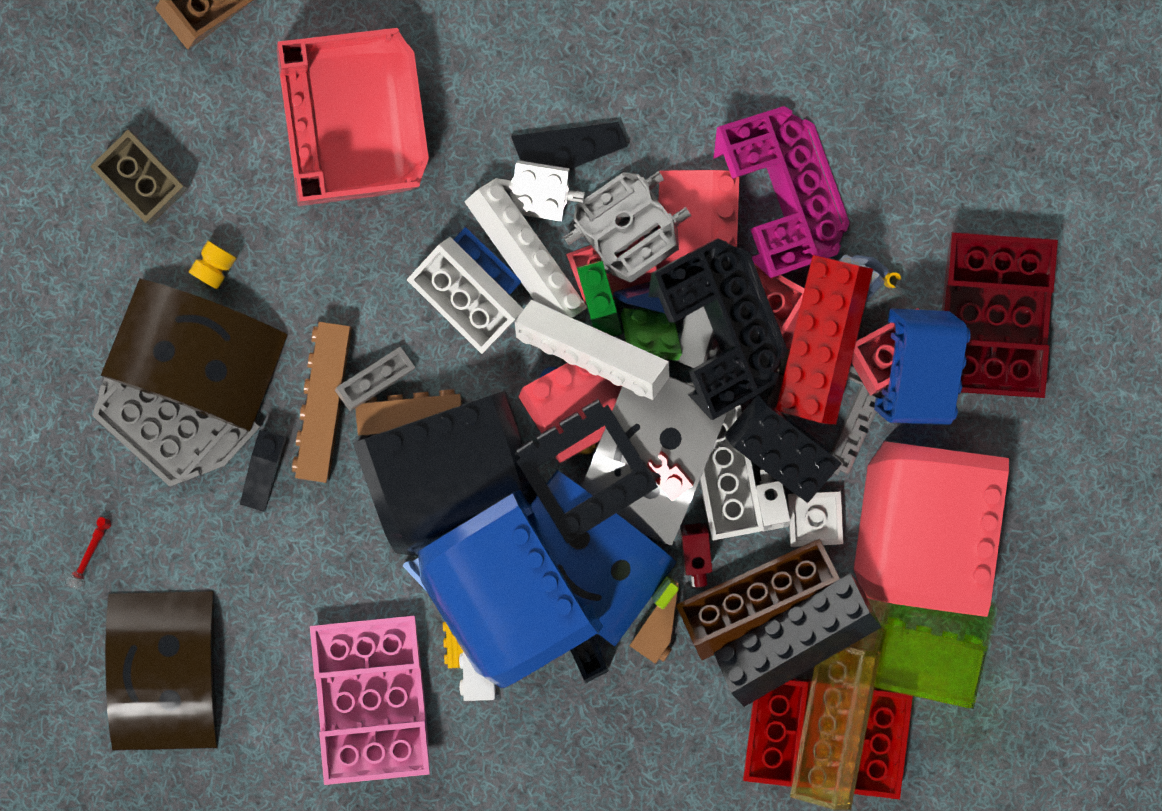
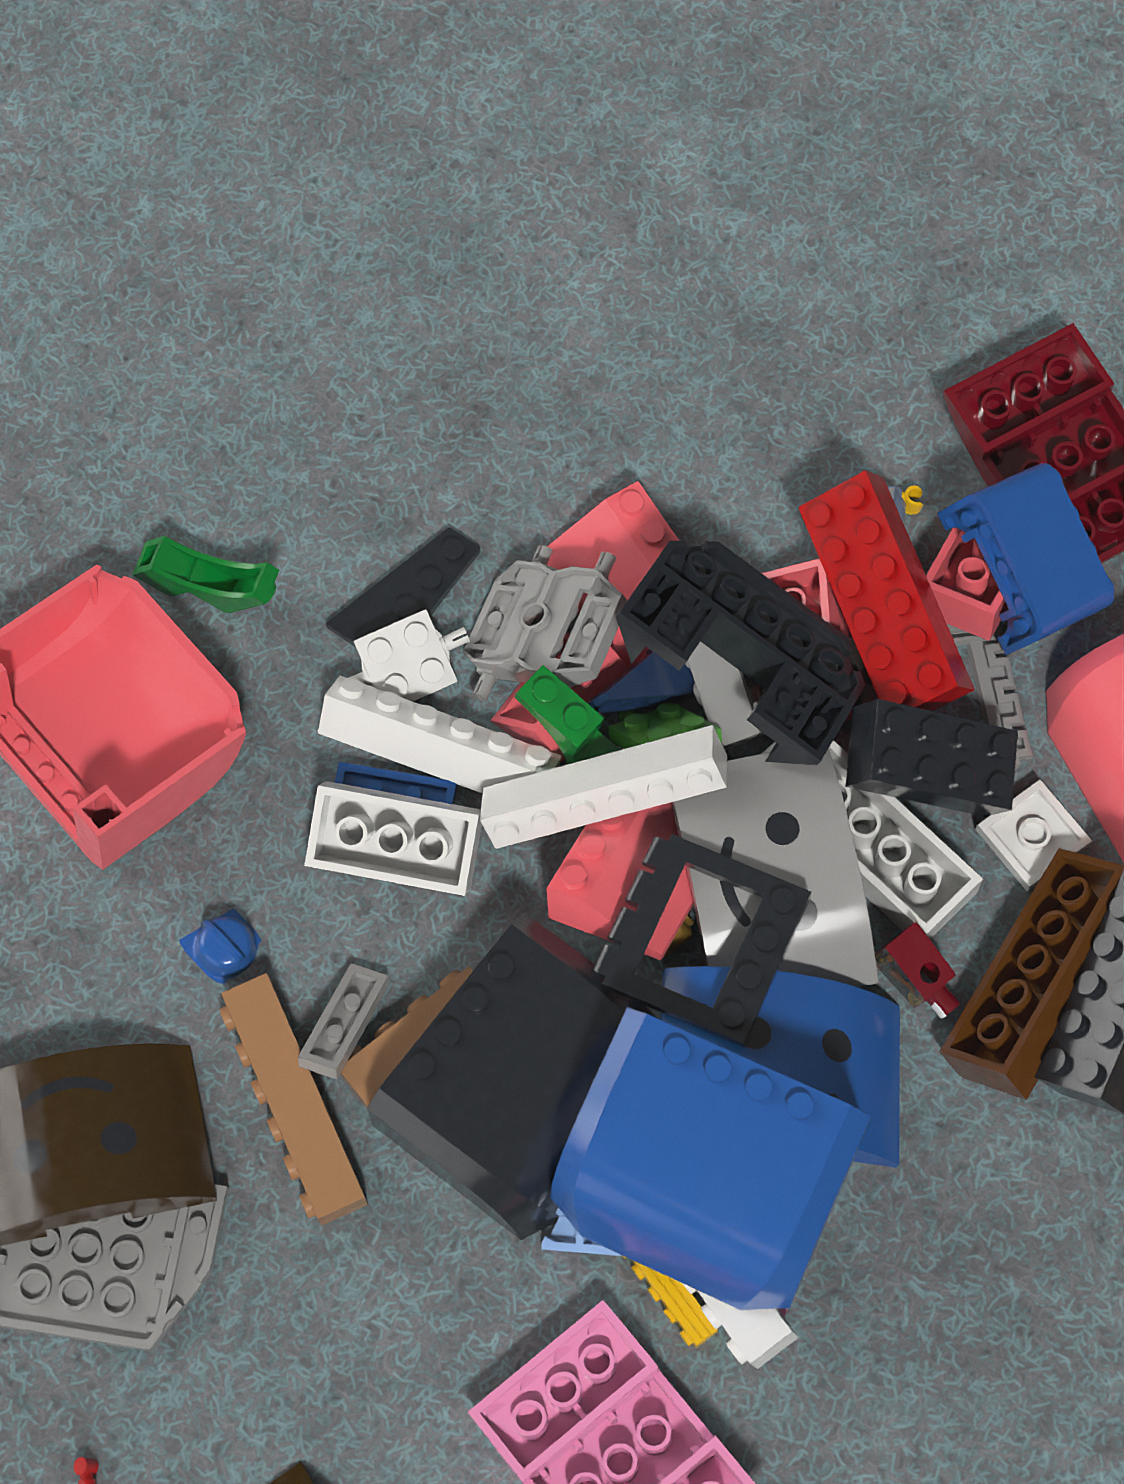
camera: 30 degrees left, 20 degrees down
(212, 265) = (32, 1010): yellow wheel -> none
(263, 469) = (266, 1242): black slope -> none
(338, 289) = (222, 946): none -> blue piece
(459, 65) = (217, 581): none -> green arch
(589, 660) = (875, 1204): black slope -> none
(657, 632) = (941, 1107): medium nougat slope -> none
(665, 592) = (915, 1037): lime tile -> none
(672, 479) = (822, 875): plate -> none
(773, 512) = (971, 840): white torso -> none
(810, 217) = (753, 491): dark pink slope -> none

